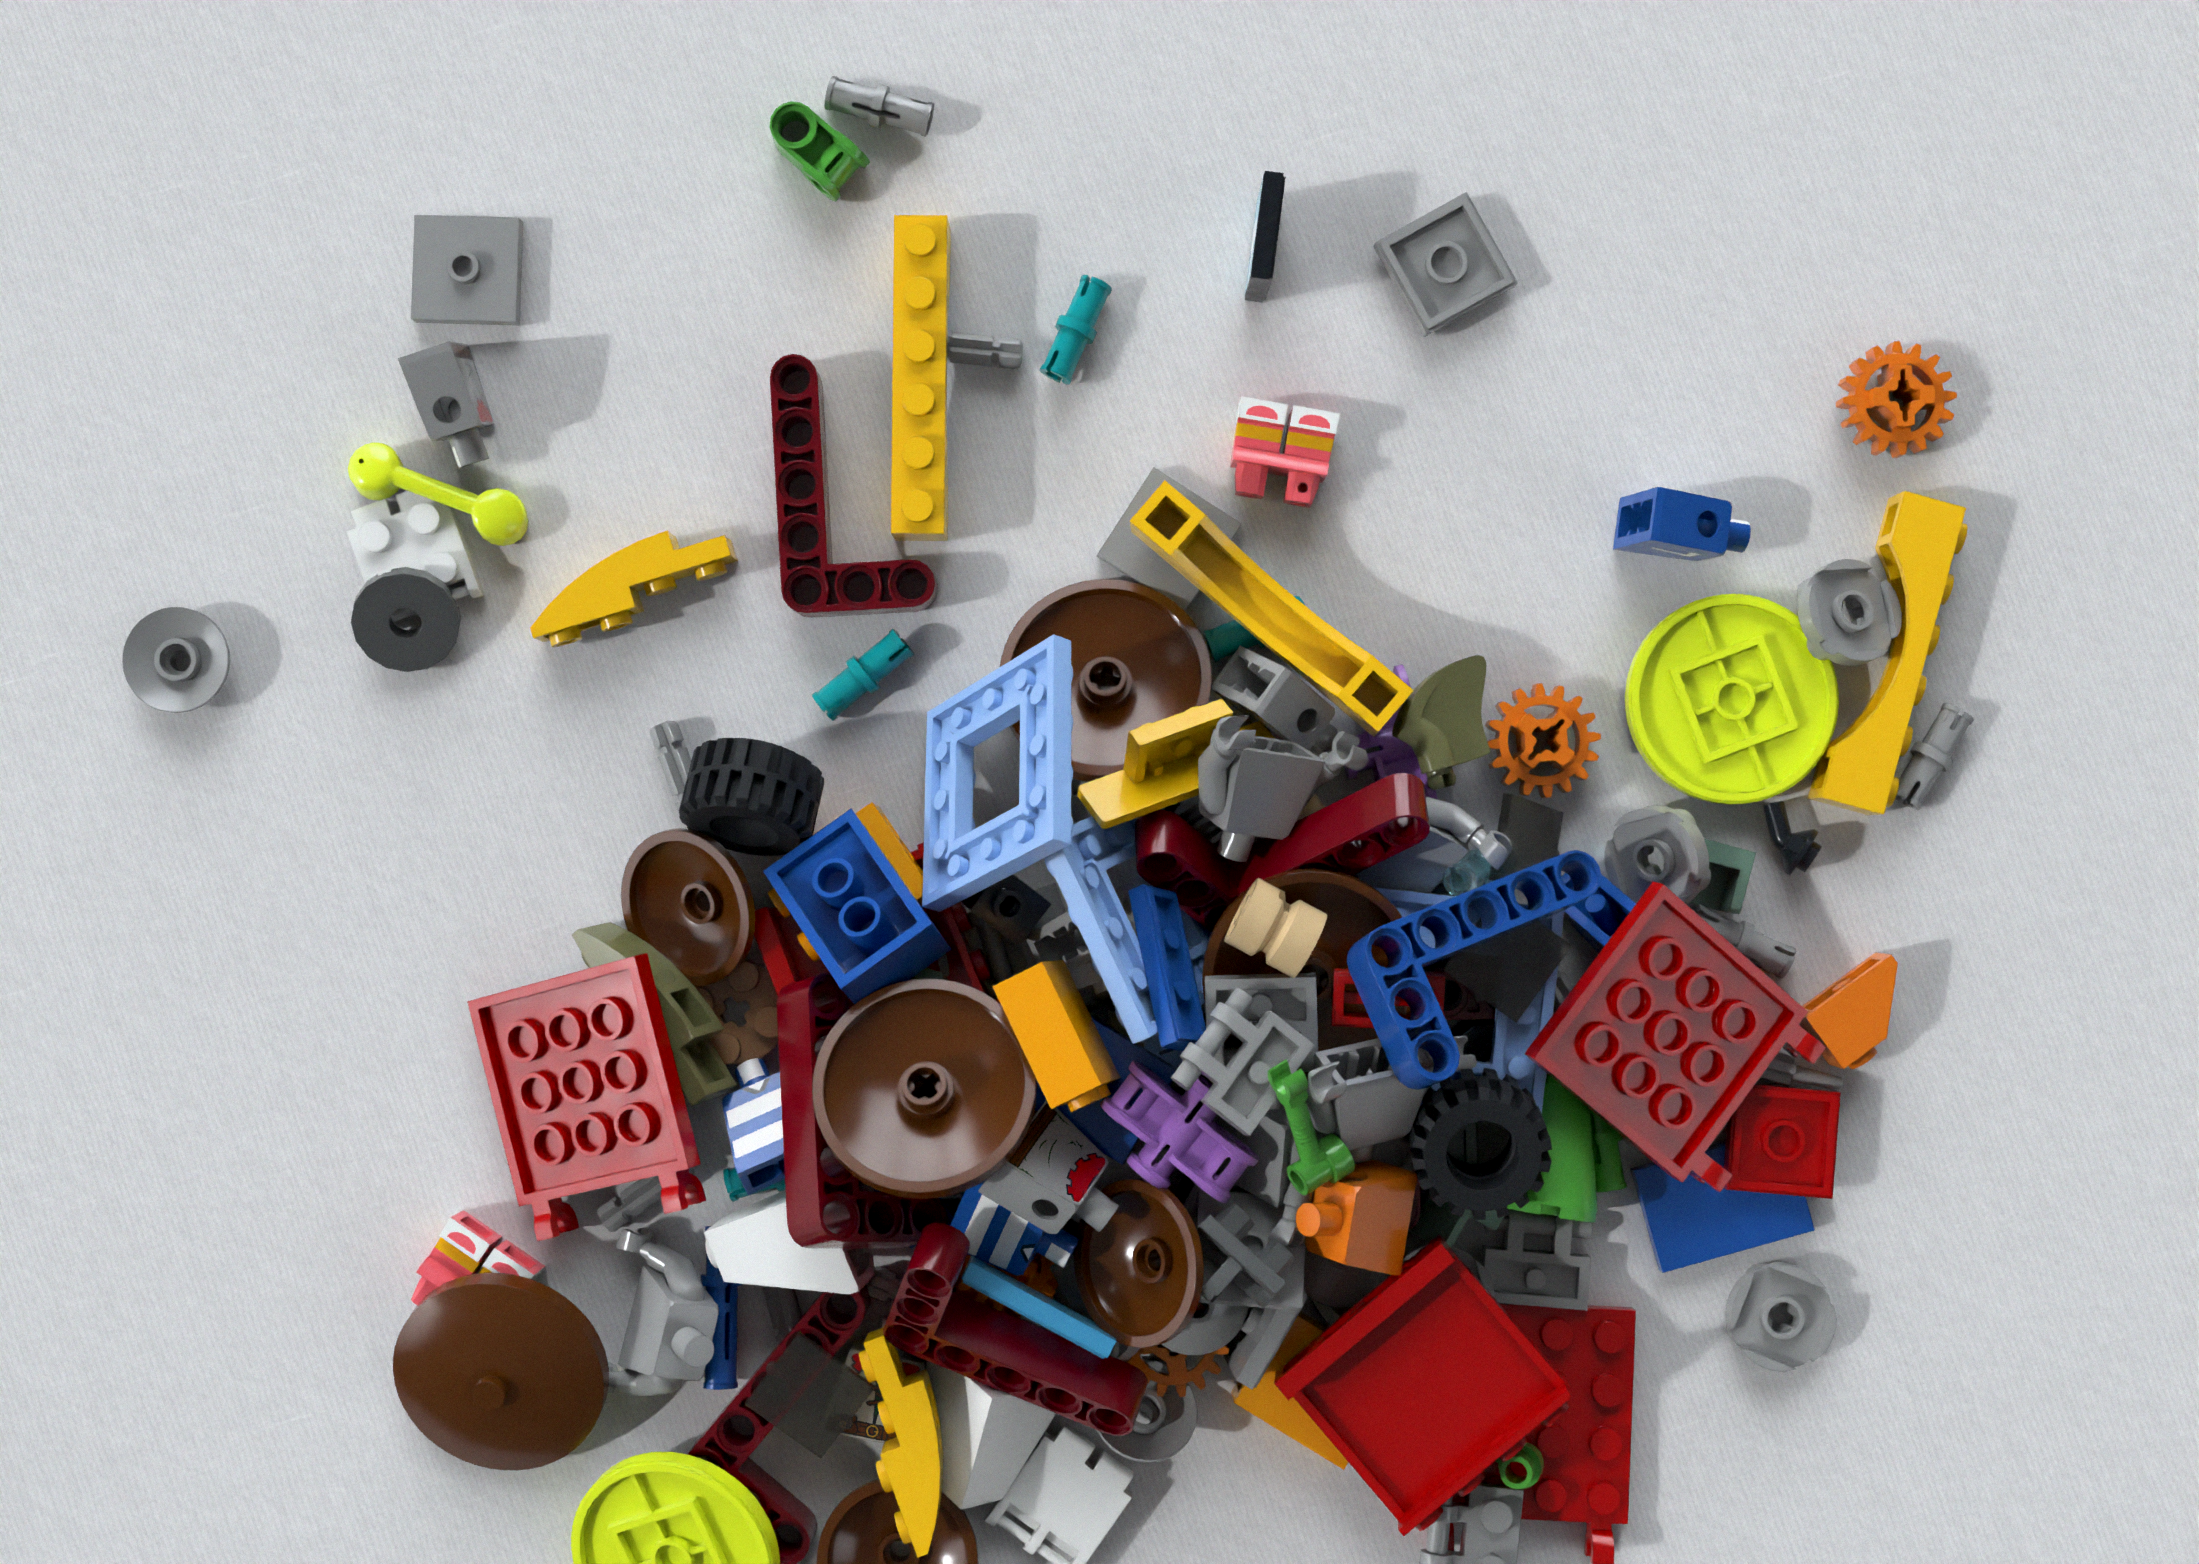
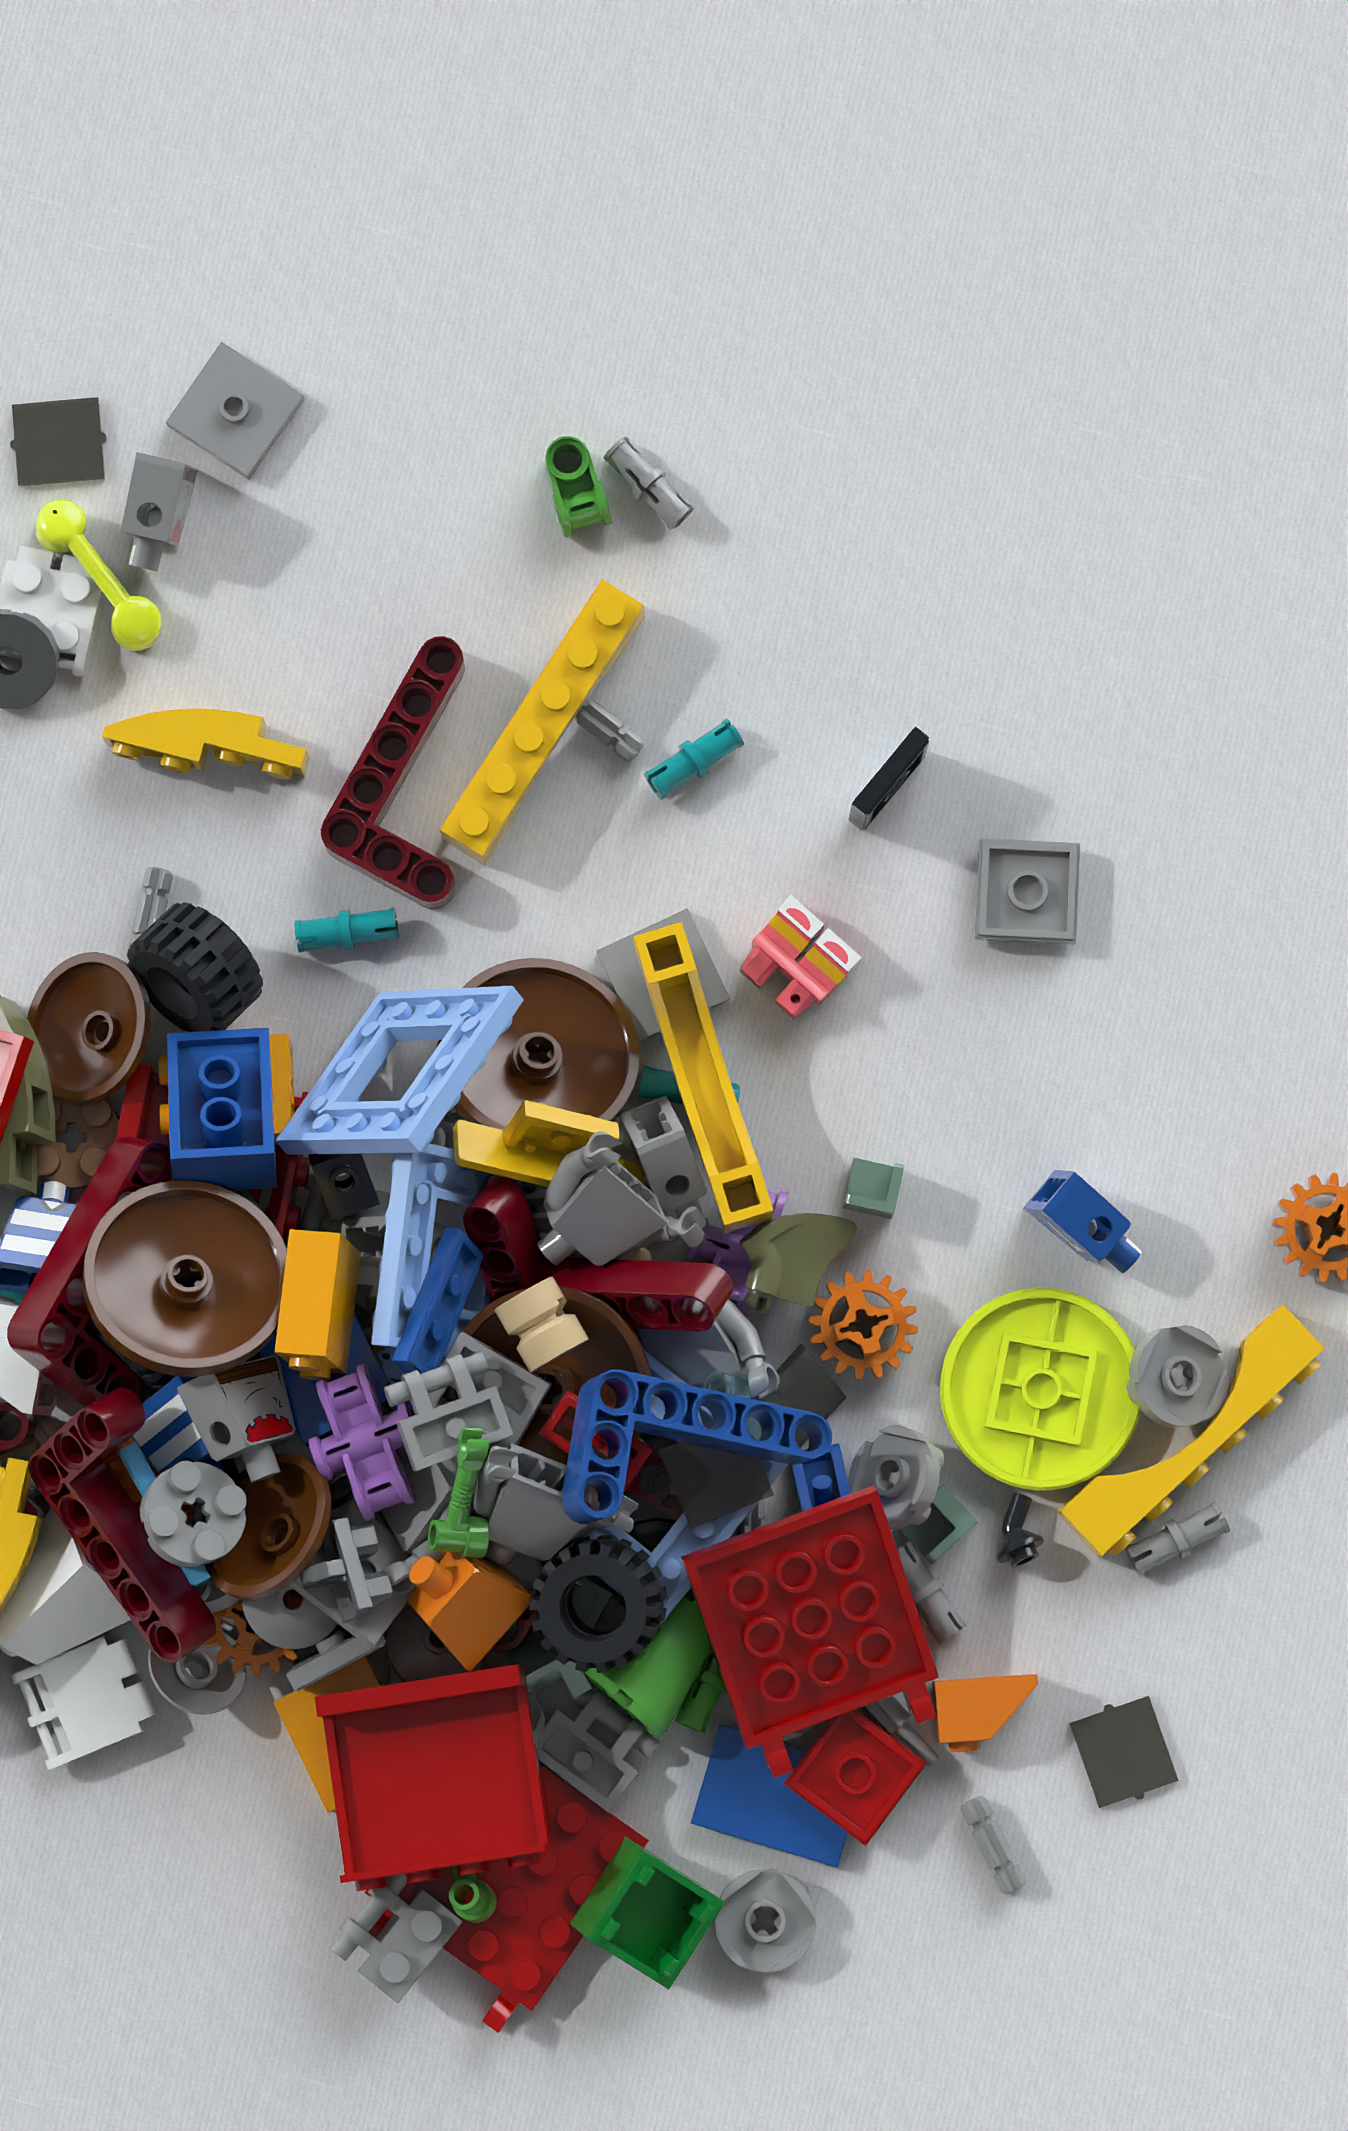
camera: 40 degrees right, 5 degrees down
(326, 396) = (58, 441): none -> clear smoke piece
(1045, 1320) = (165, 1522): none -> light grey plate
(1475, 612) = (873, 1188): none -> sand green panel
(1679, 1379) = (647, 1913): none -> green container
(1936, 1124) = (993, 1845): none -> light grey axle
(1996, 971) = (1123, 1751): none -> clear smoke piece

